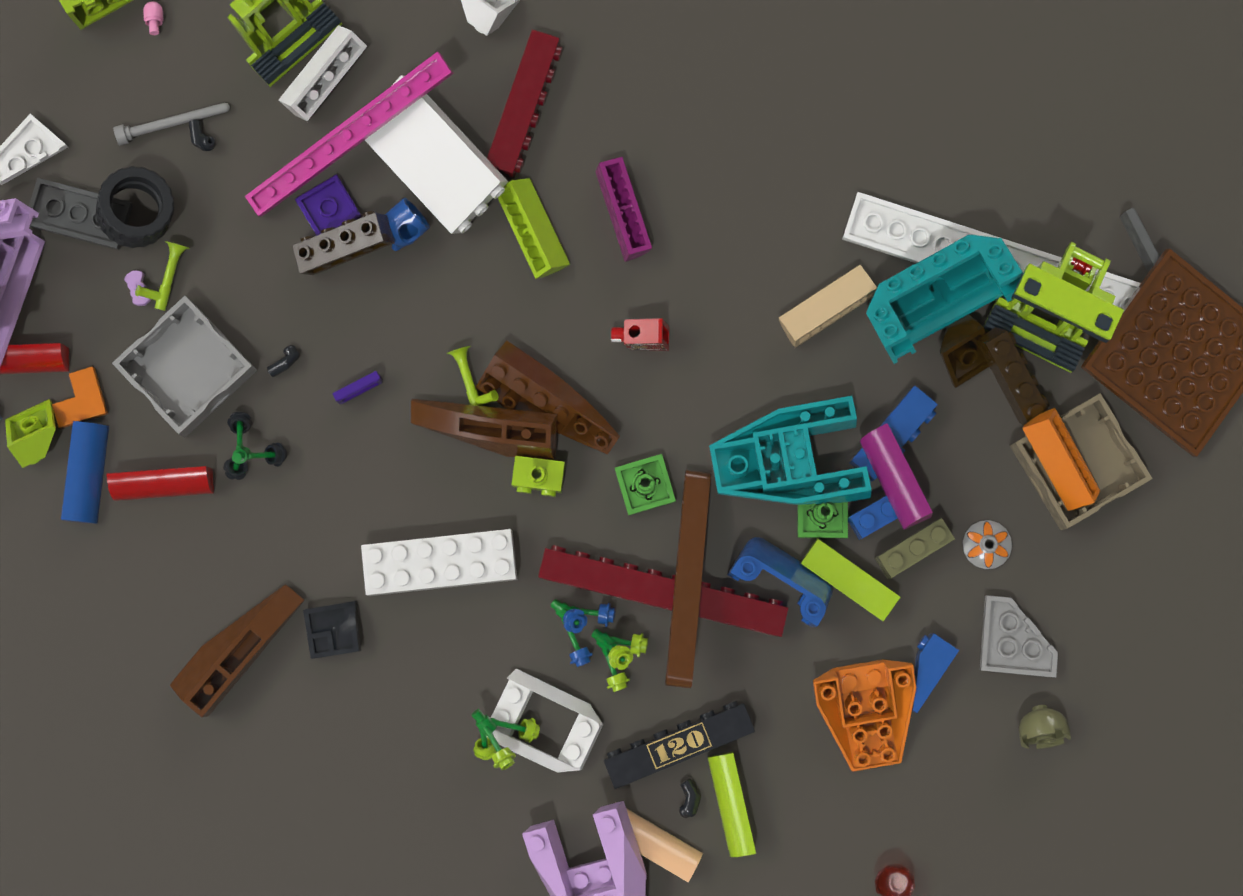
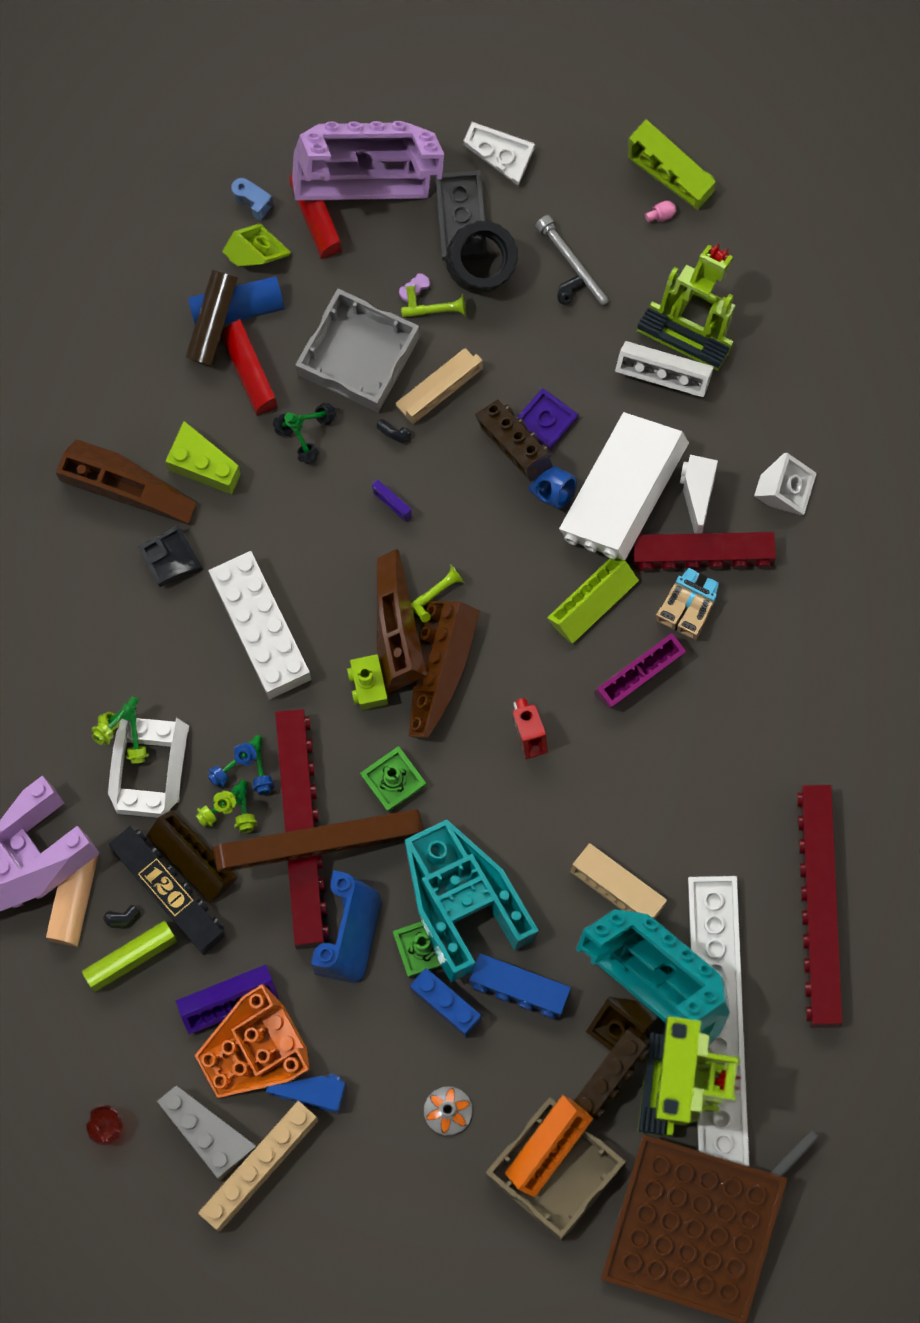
camera: 75 degrees right, 10 degrees down
(87, 401) = (302, 283): orange tile -> none
(93, 502) = (211, 317): none -> dark brown brick
(243, 564) = (202, 461): none -> lime wedge
(252, 299) = (439, 385): none -> tan panel
(349, 134) = (614, 409): dark pink plate -> none
(469, 88) = (698, 482): none -> white slope
(572, 138) = (688, 596): none -> hips
(649, 711) = (190, 855): none -> dark brown brick
(806, 724) = (215, 1002): none -> dark purple brick
(850, 579) = (370, 992): lime brick -> none
(896, 477) = (476, 994): magenta brick -> none
(913, 125) = (820, 905): none -> dark red brick
(914, 548) = (418, 1040): olive brick -> none
(939, 783) = (211, 1137): none -> light grey wedge
(985, 745) = (258, 1166): none -> tan brick
(1013, 641) = (363, 1163): light grey plate -> none
(1044, 728) = (292, 1215): olive cylinder -> none

